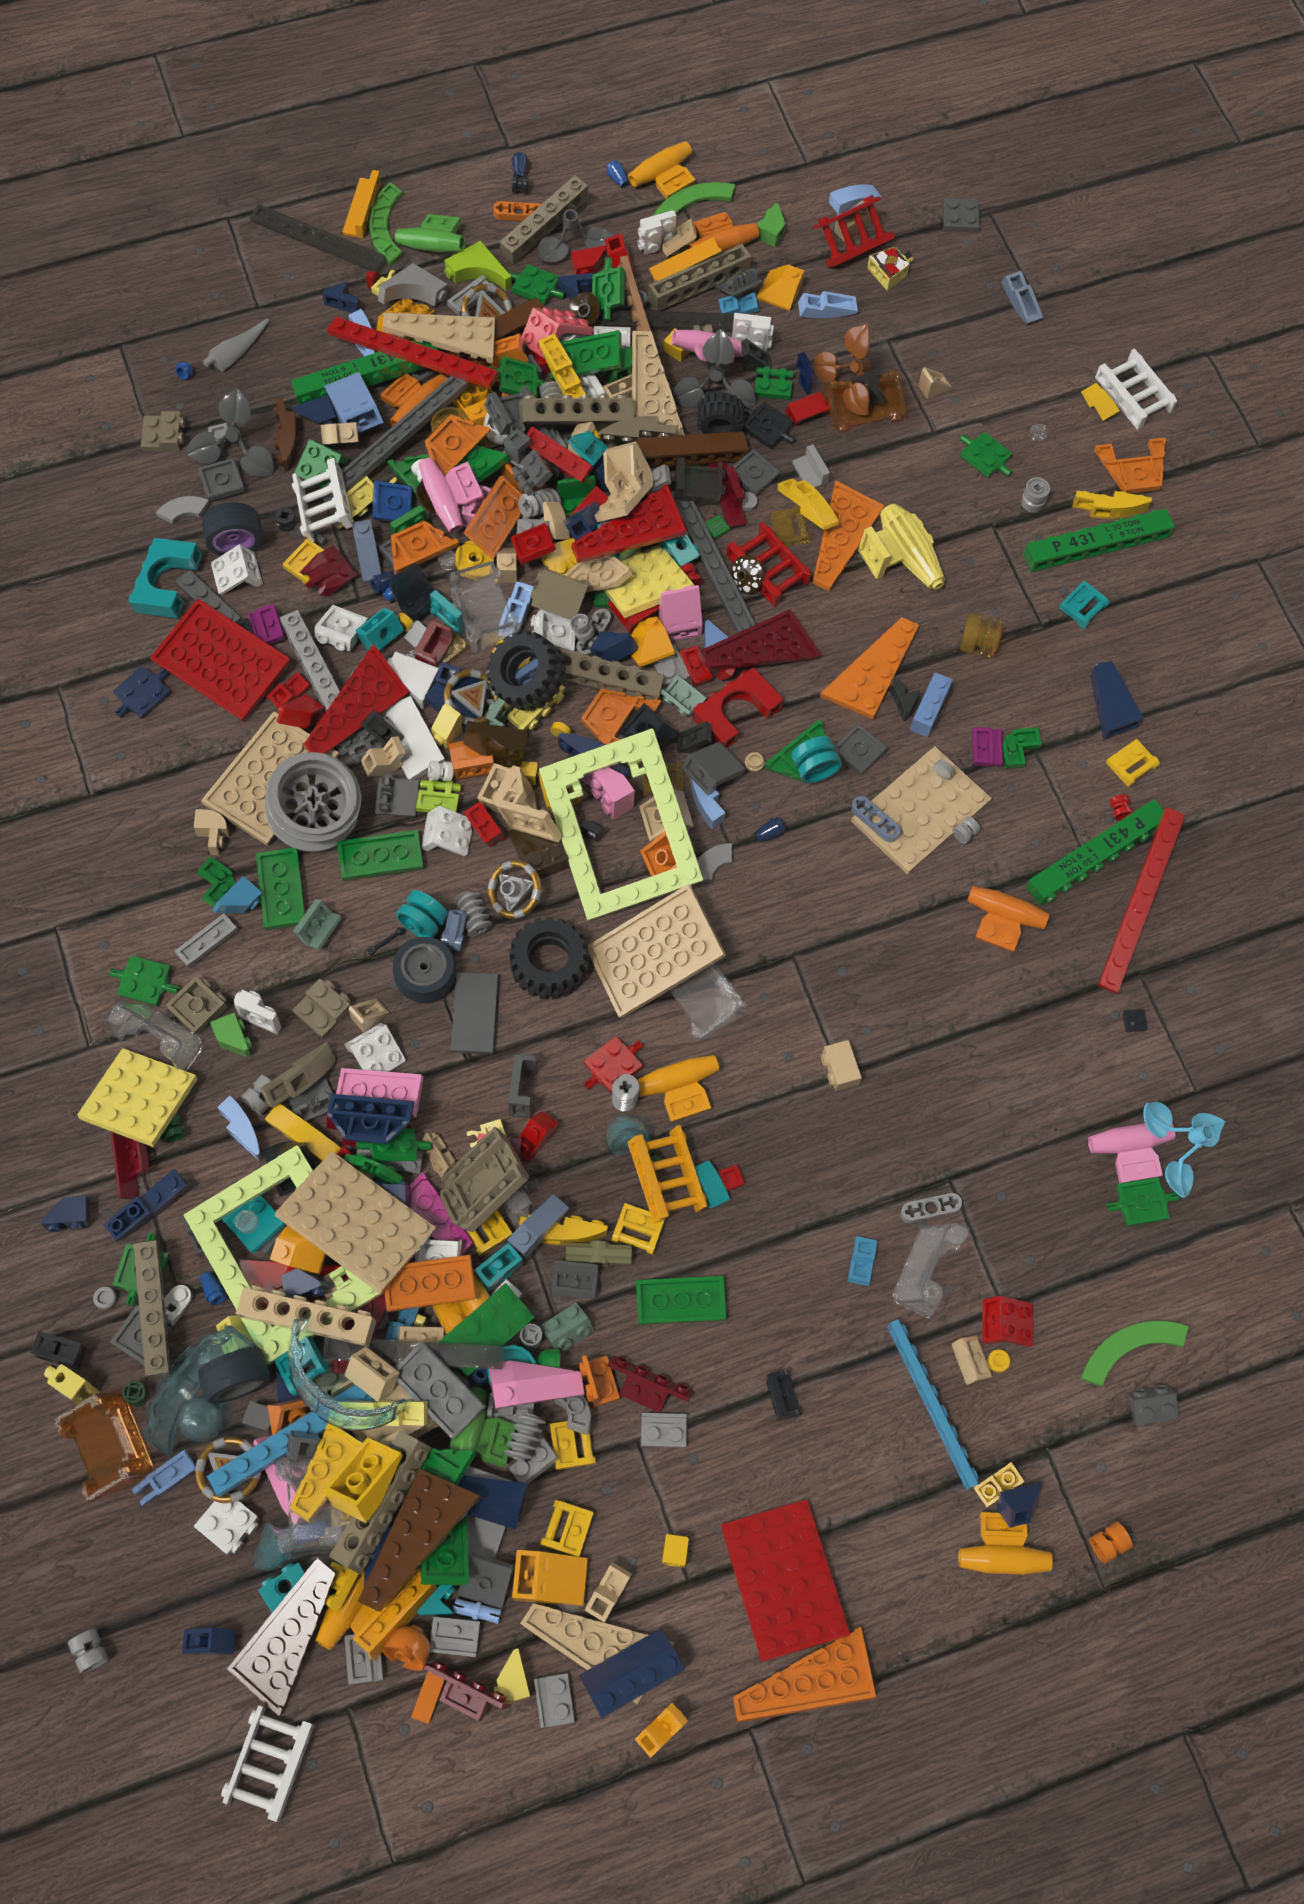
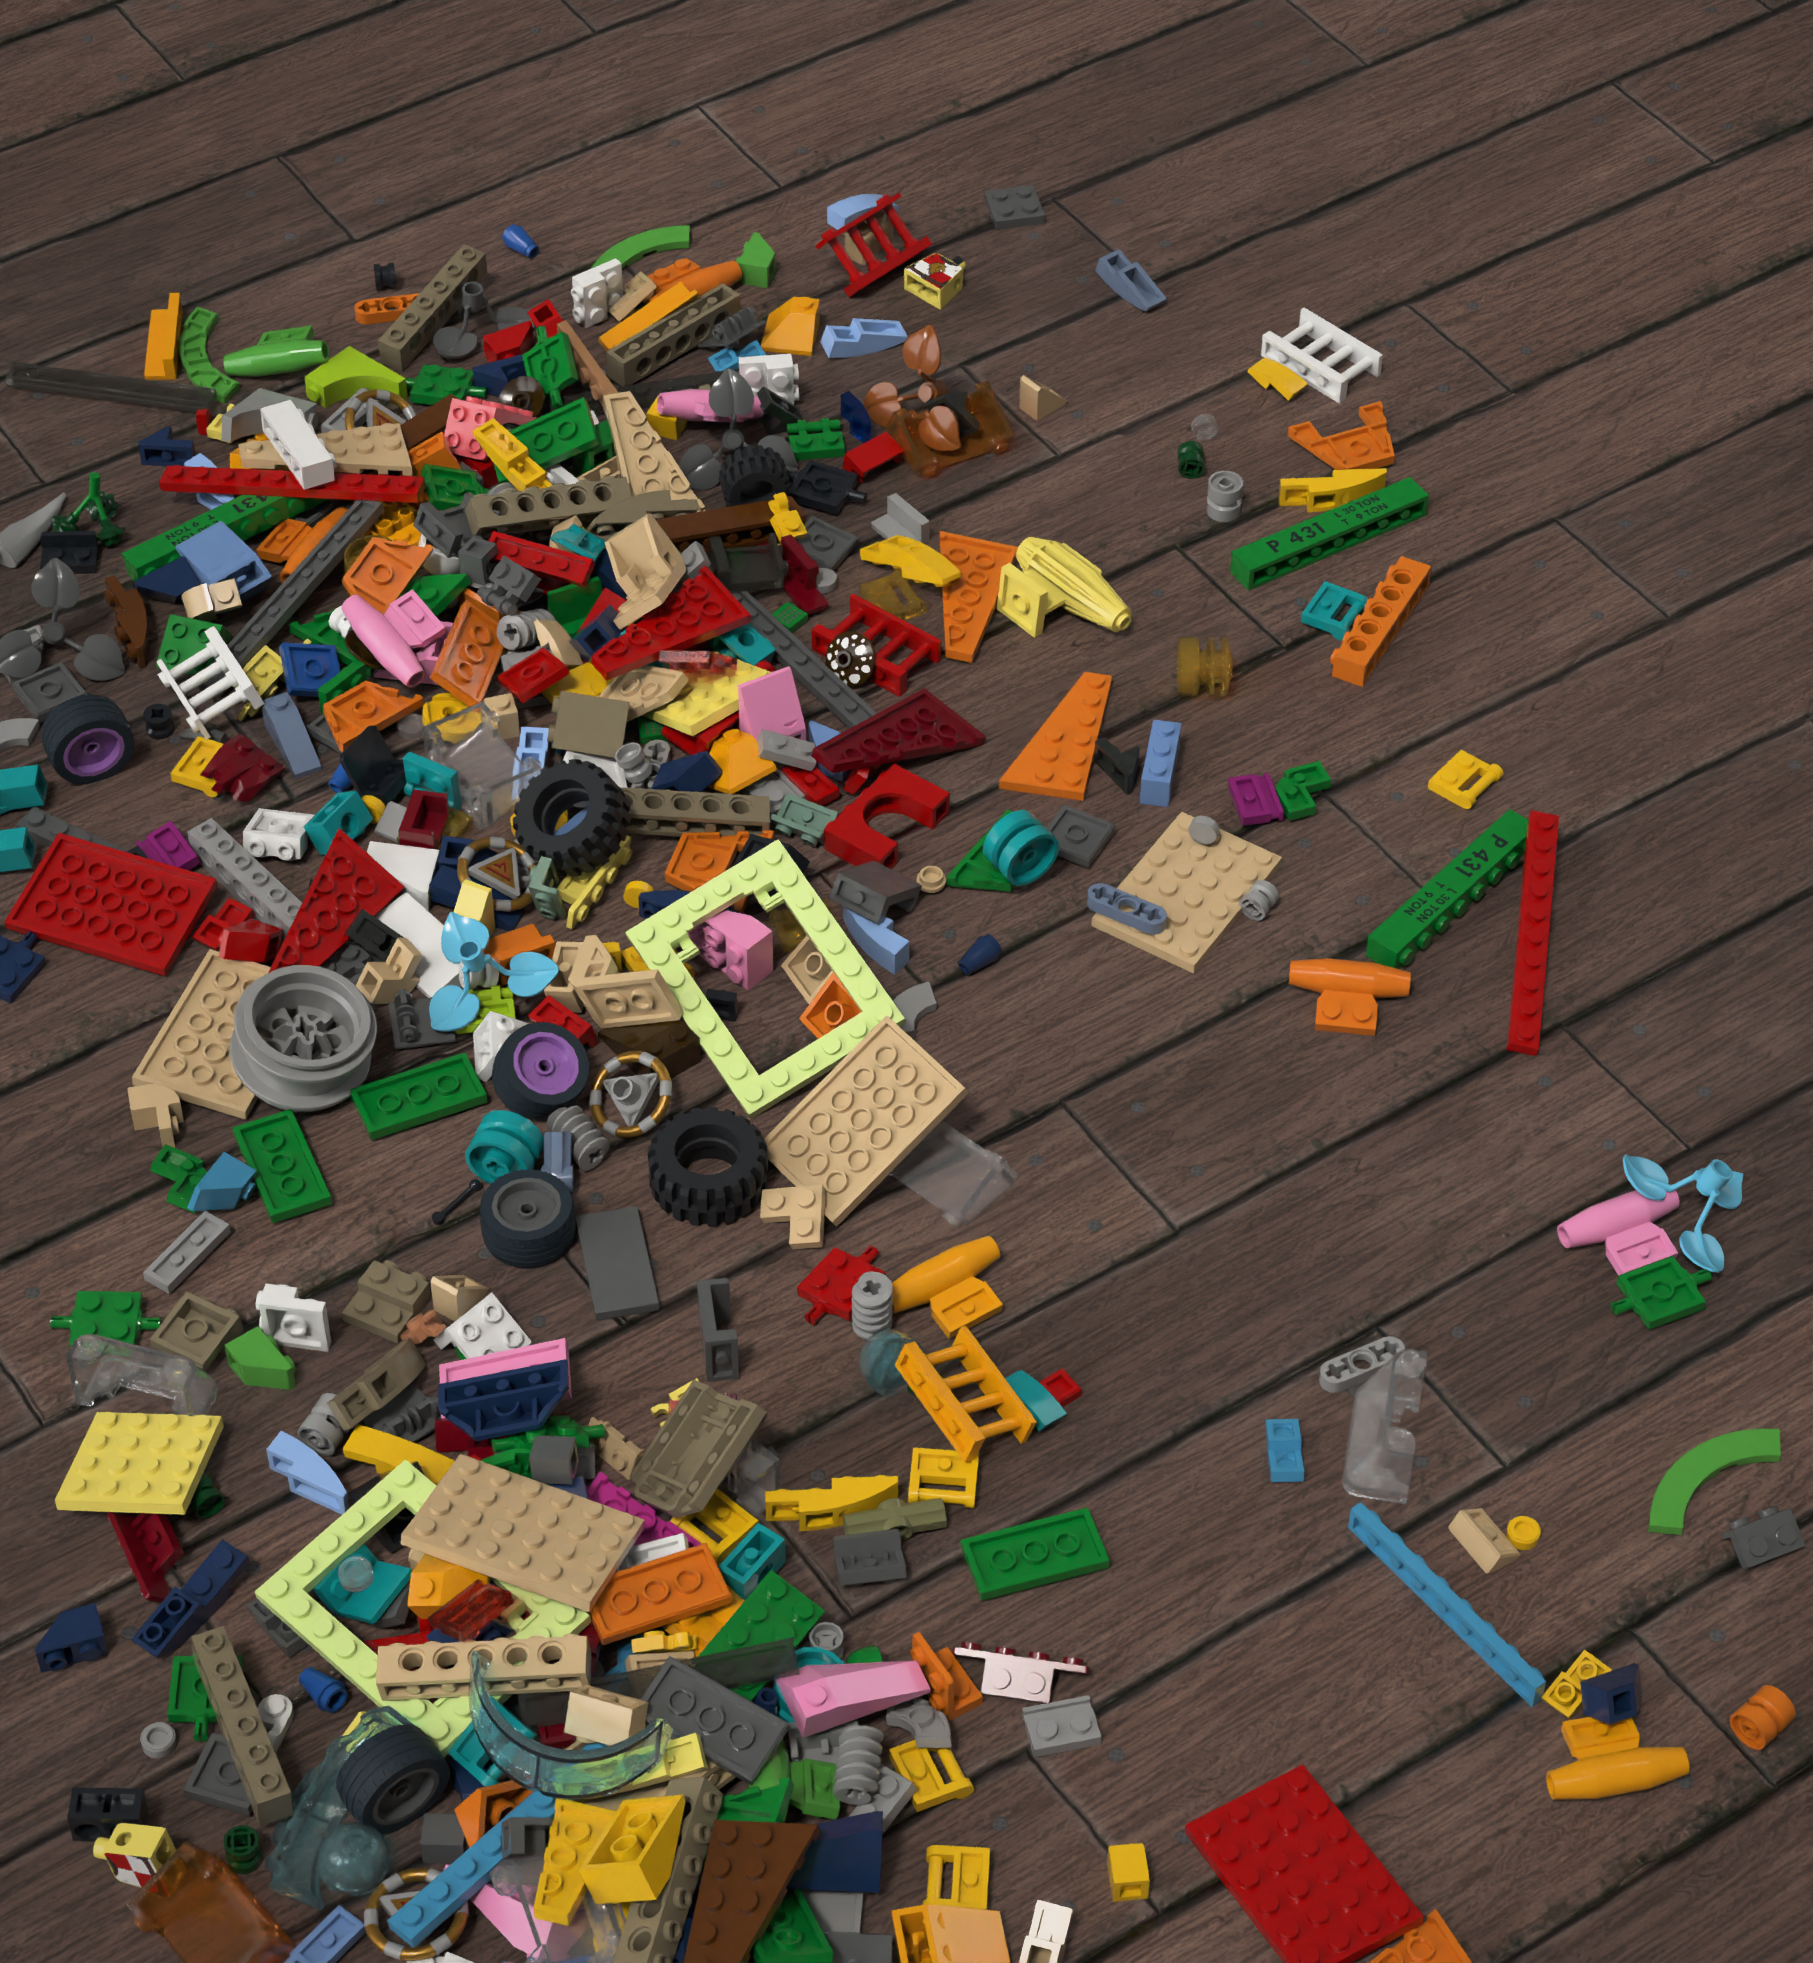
camera: 10 degrees left, 20 degrees down
(234, 568) = (101, 791): white bracket -> none
(259, 369) = (74, 548): none -> black bracket
(288, 338) = (100, 507): none -> dark green plant
(306, 1276) = (471, 1610): none -> clear red plate
(316, 925) = (349, 1197): sand green bracket -> none
(338, 1036) = (423, 1326): none -> nougat plate
(381, 581) = (322, 768): dark blue cone -> none
(389, 1170) = (554, 1459): none -> dark grey panel
(420, 326) = (298, 444): none -> white brick
(422, 1318) = (660, 1643): none -> yellow plate
(437, 743) = (465, 942): none -> medium azure plant
(444, 864) = (540, 1070): none -> wheel
(501, 742) = (562, 912): dark brown slope -> none
(520, 163) = (377, 252): dark blue cone -> none
(536, 1134) = (758, 1381): red slope -> none
(538, 1225) = (794, 1493): sand blue slope -> none
(567, 1328) = (879, 1622): sand green bracket -> none
(603, 1004) = (802, 1207): none -> tan plate
(643, 561) = (696, 661): none -> clear red plate
(665, 170) = (587, 225): light orange plate -> none
(684, 641) = (786, 749): none -> light grey plate
(694, 738) = (839, 858): pearl dark grey slope -> none
(732, 455) = (785, 521): none -> yellow plate
(782, 1395) = (1221, 1641): black hinge -> none
(841, 1065) = (1175, 1215): tan brick -> none
(986, 454) = (1140, 466): green plate -> none
(1007, 1321) = (1517, 1473): red bracket -> none
(1021, 458) = (1191, 459): none -> dark green wheel
(1085, 654) = (1380, 621): none -> orange brick
(1113, 701) = (1414, 712): dark blue slope -> none
(1121, 806) = (1465, 828): red wheel -> none
(1134, 1020) = (1574, 1080): black plate -> none

